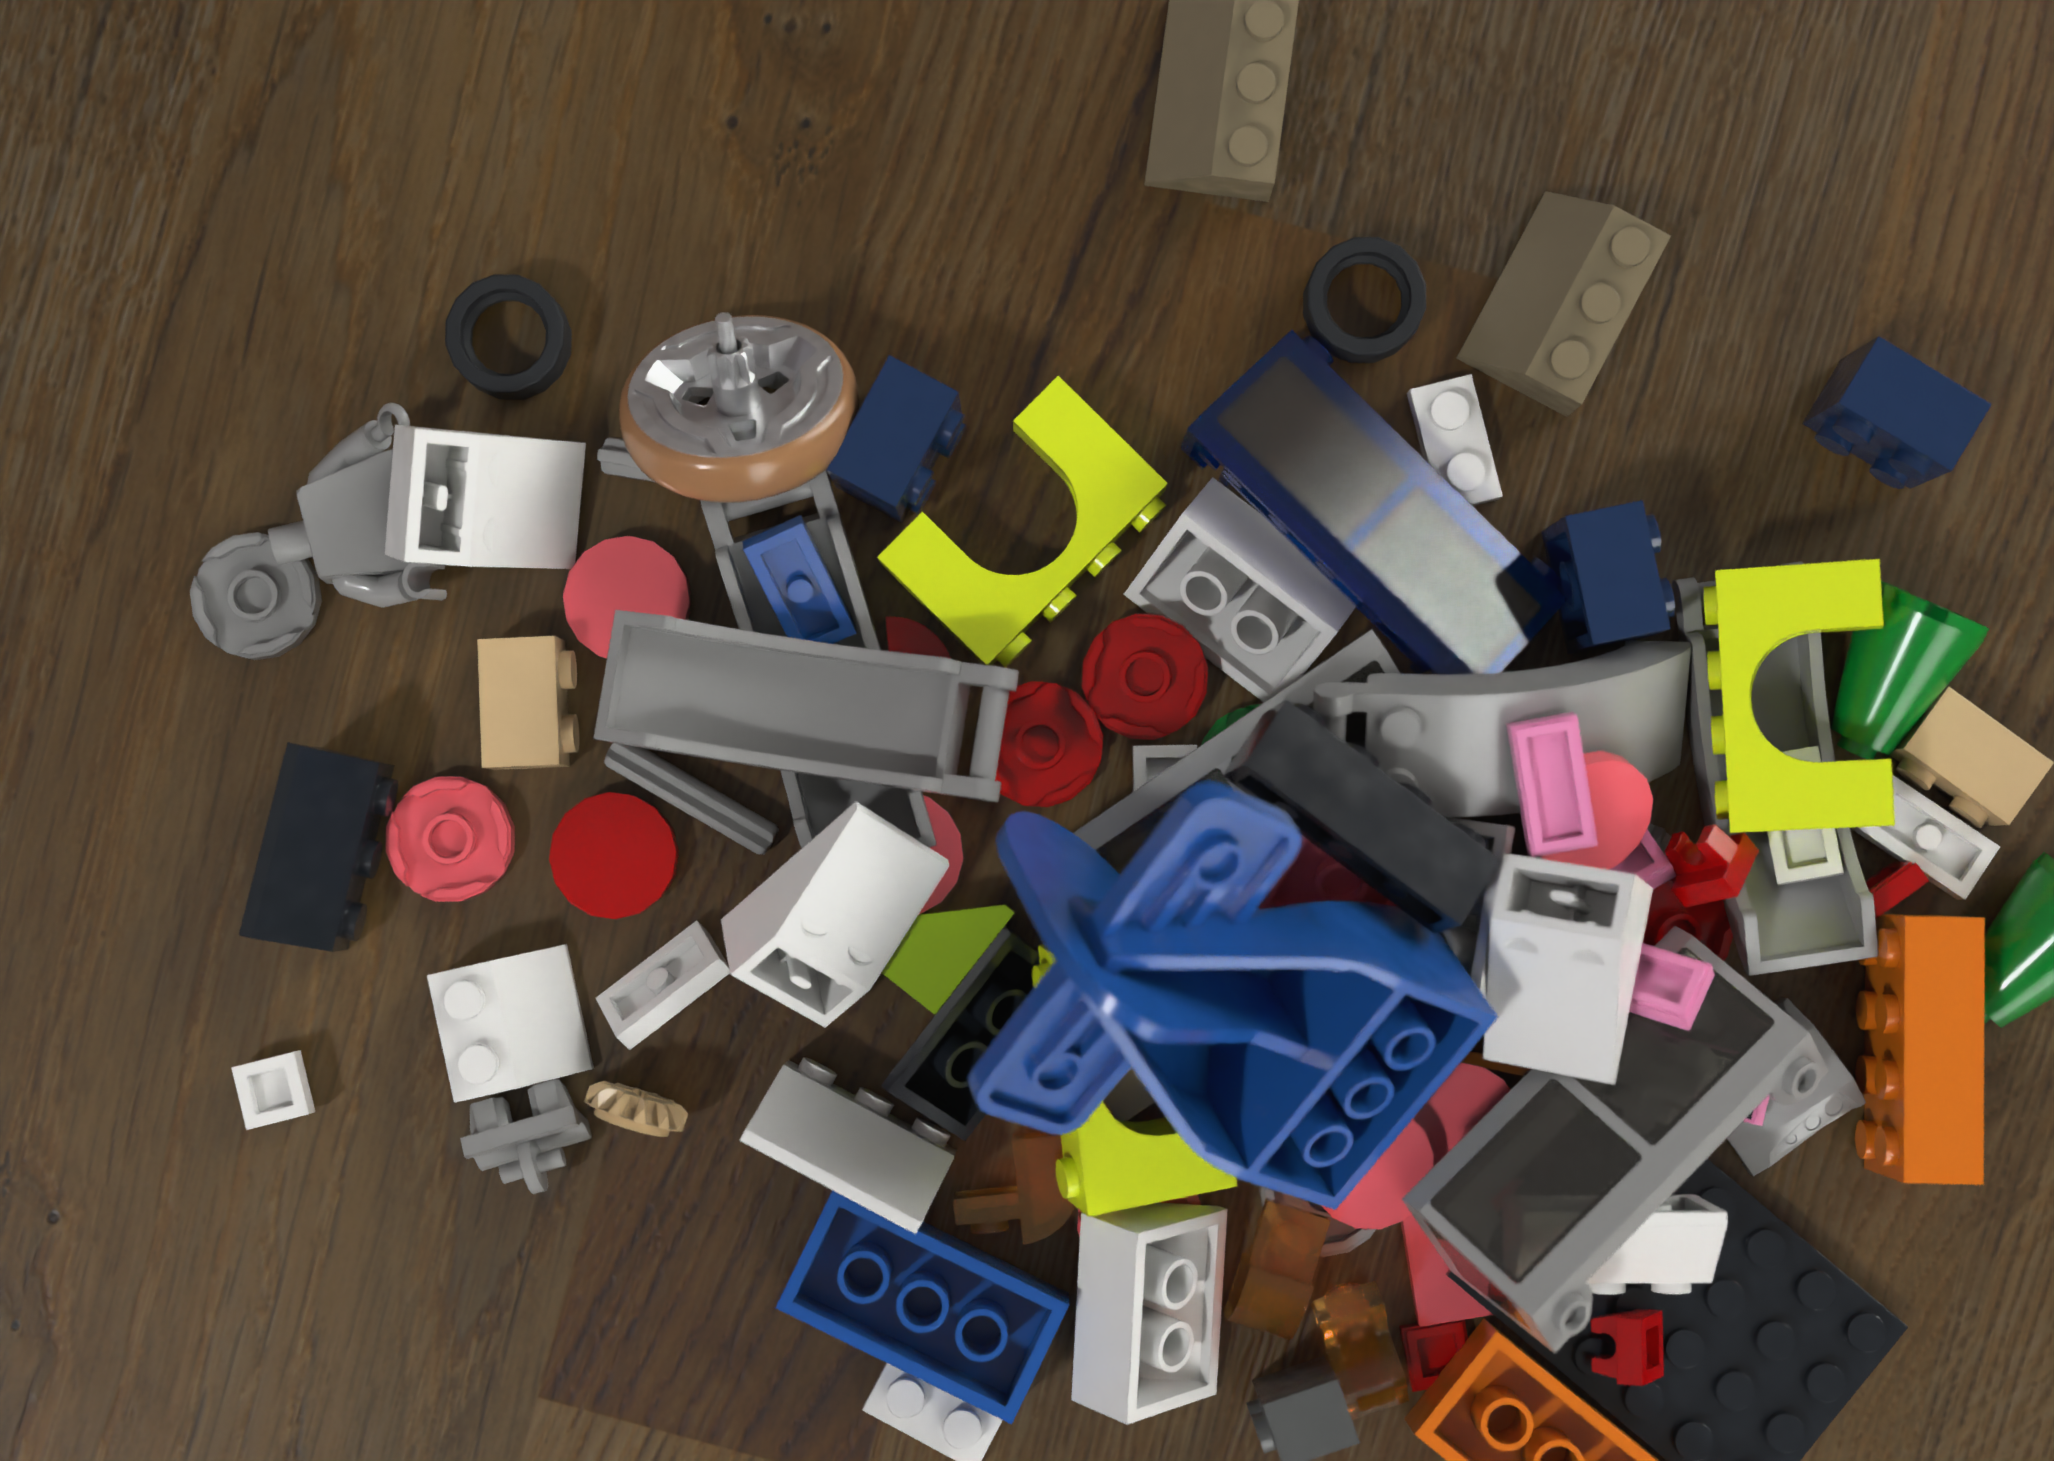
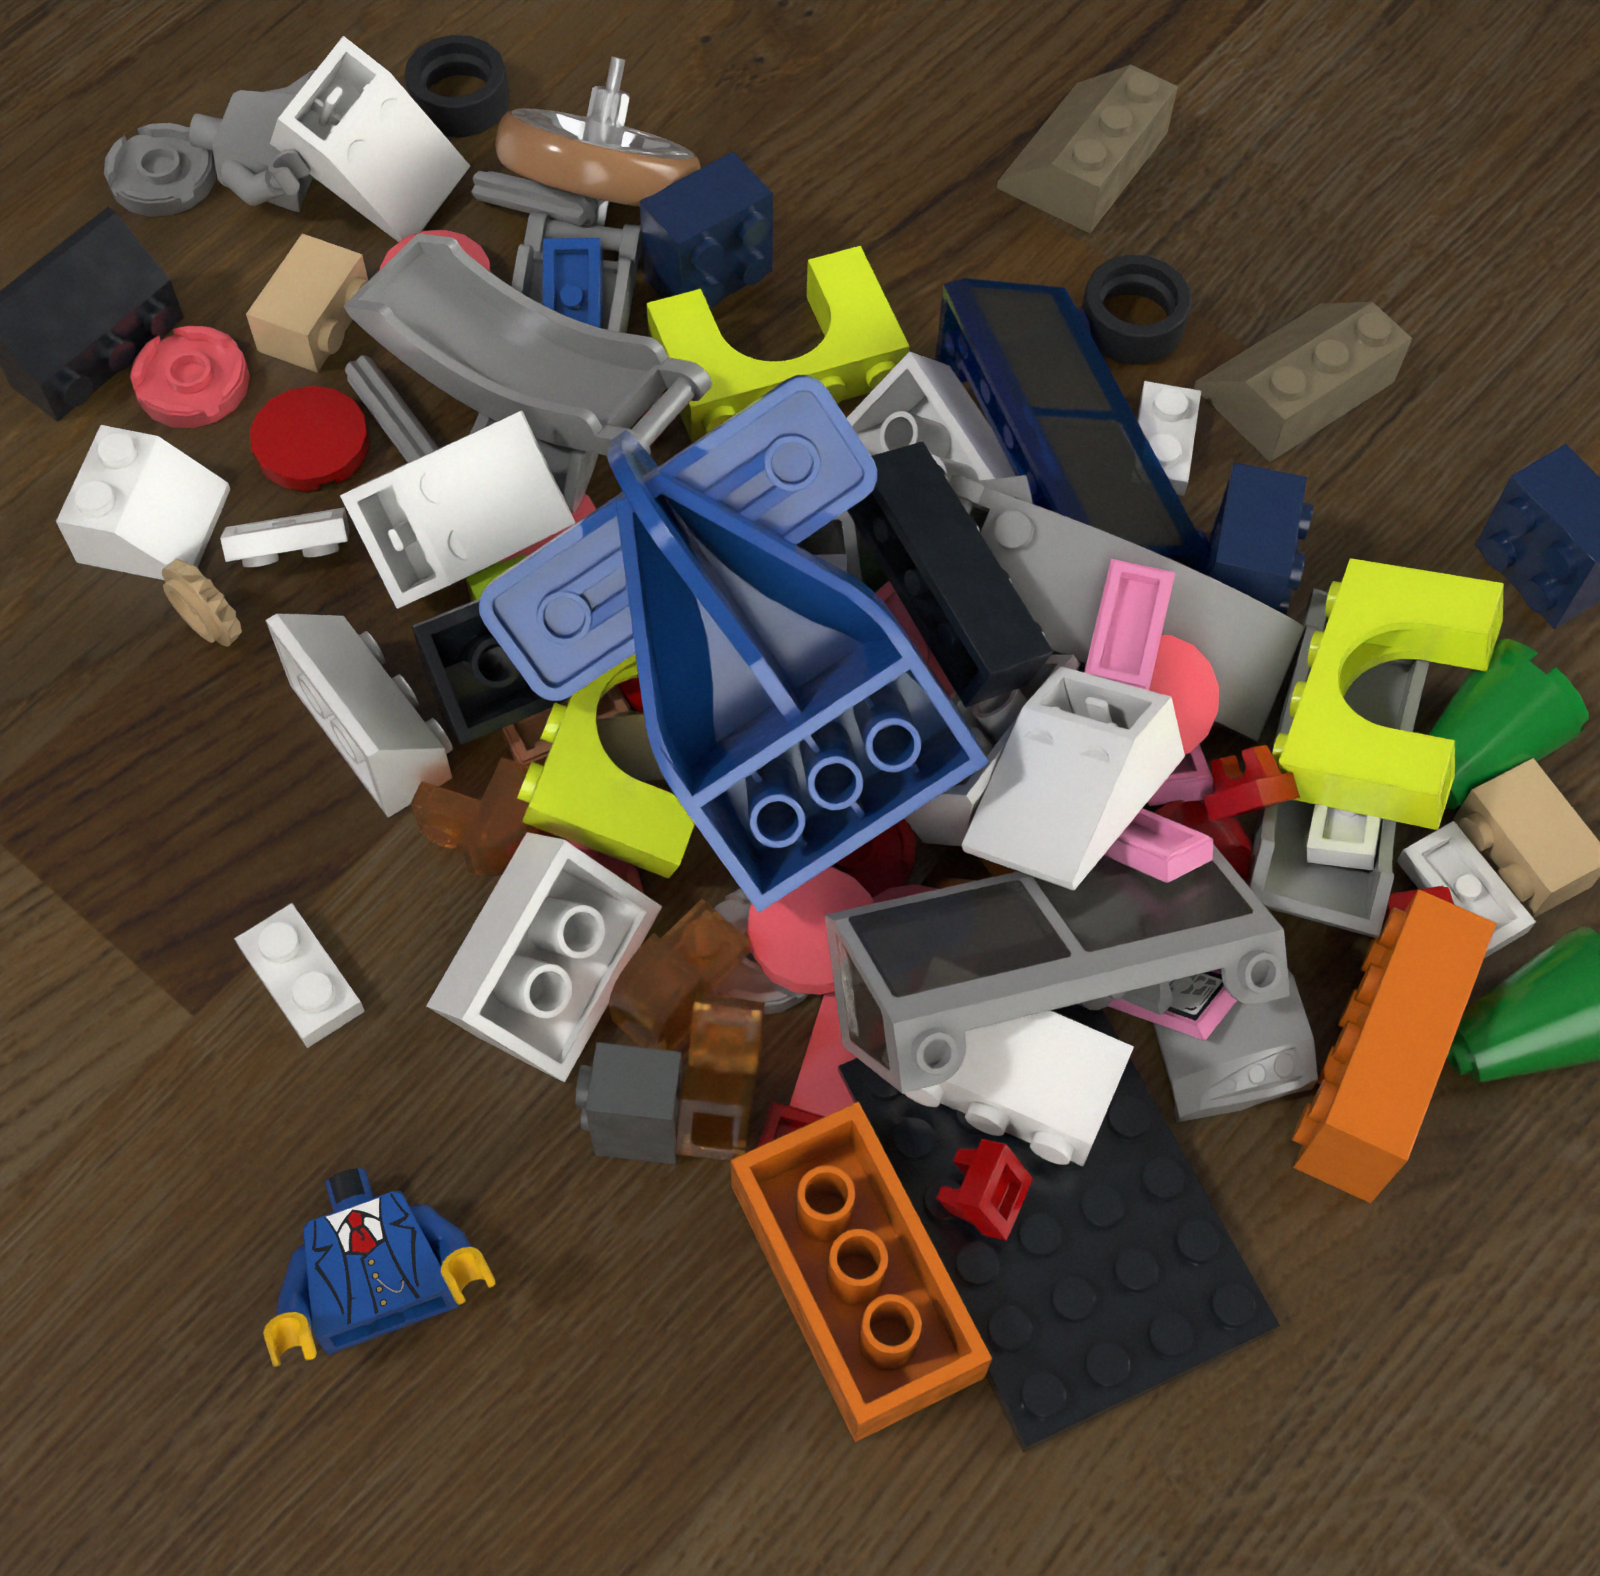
camera: 20 degrees right, 25 degrees down
(528, 1145) = (99, 595): light grey hips -> none
(926, 1305) = (346, 858): blue brick -> none

